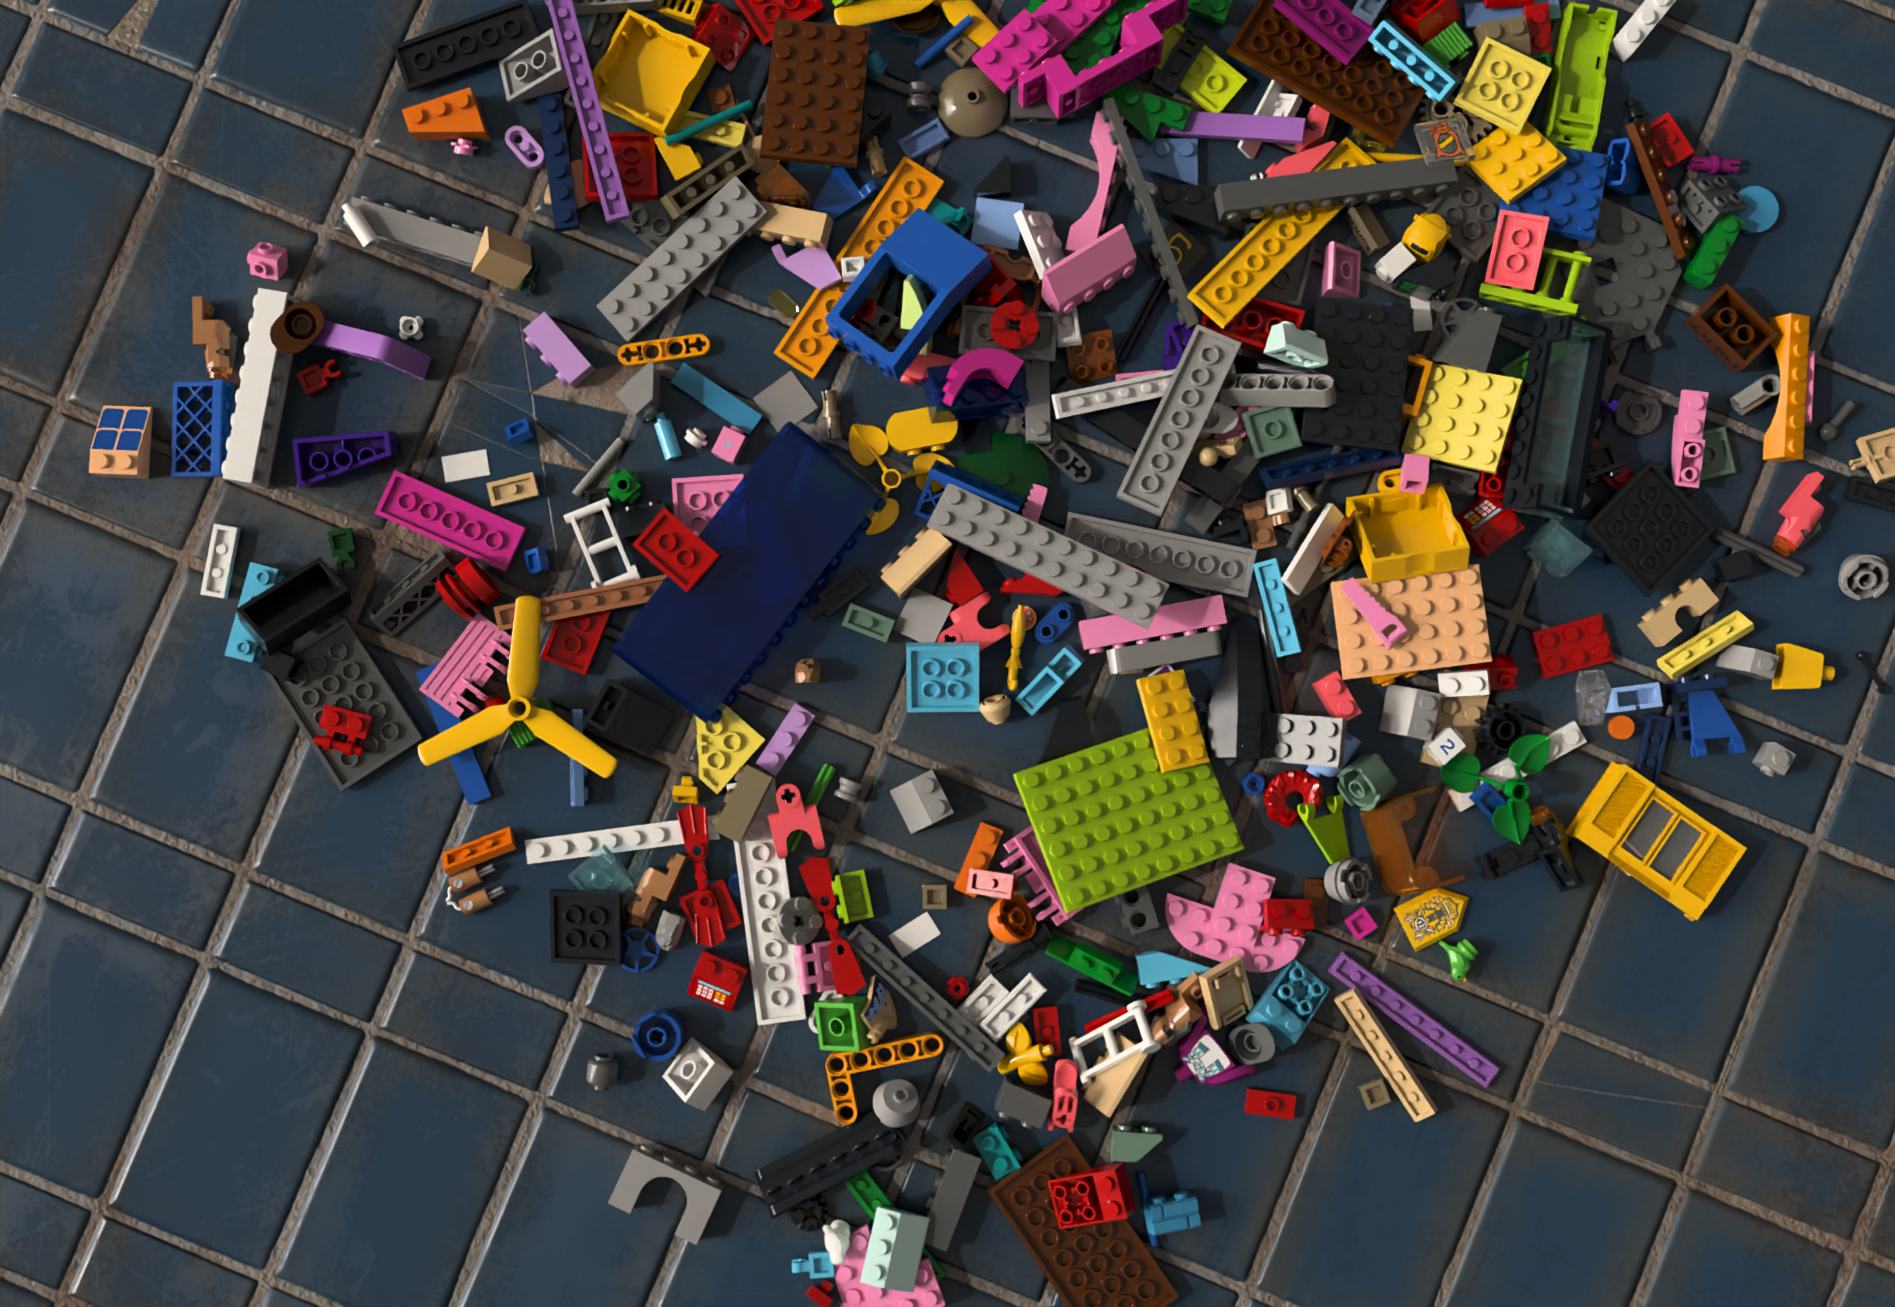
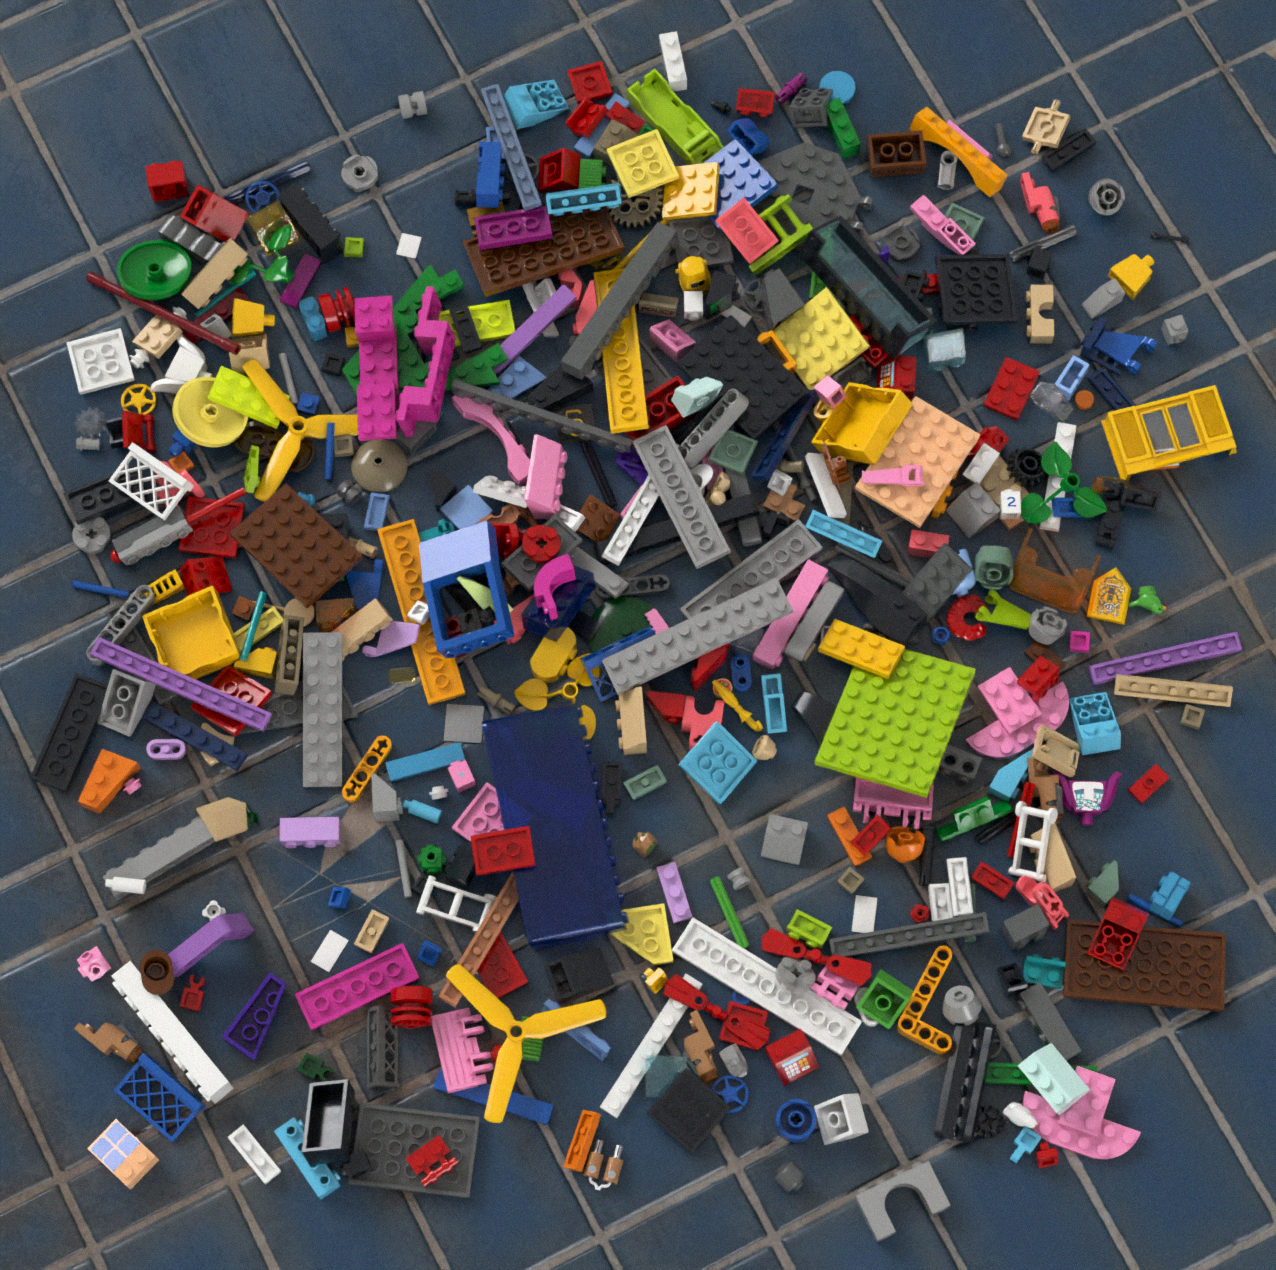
camera: 50 degrees left, 15 degrees down
(742, 803) = (692, 946): dark tan brick -> none
(794, 817) = (726, 924): coral piece -> none
(878, 1011) = (894, 971): tan arm -> none
(923, 616) = (669, 746): light grey piece -> none
(1024, 1056) = (997, 904): yellow plant -> none
(1251, 1043) = (1100, 760): dark grey piece -> none
(1444, 142) = (647, 220): clear tile -> none
(1660, 188) = (785, 128): reddish brown plate -> none
(1705, 644) = (1073, 314): light yellow plate -> none

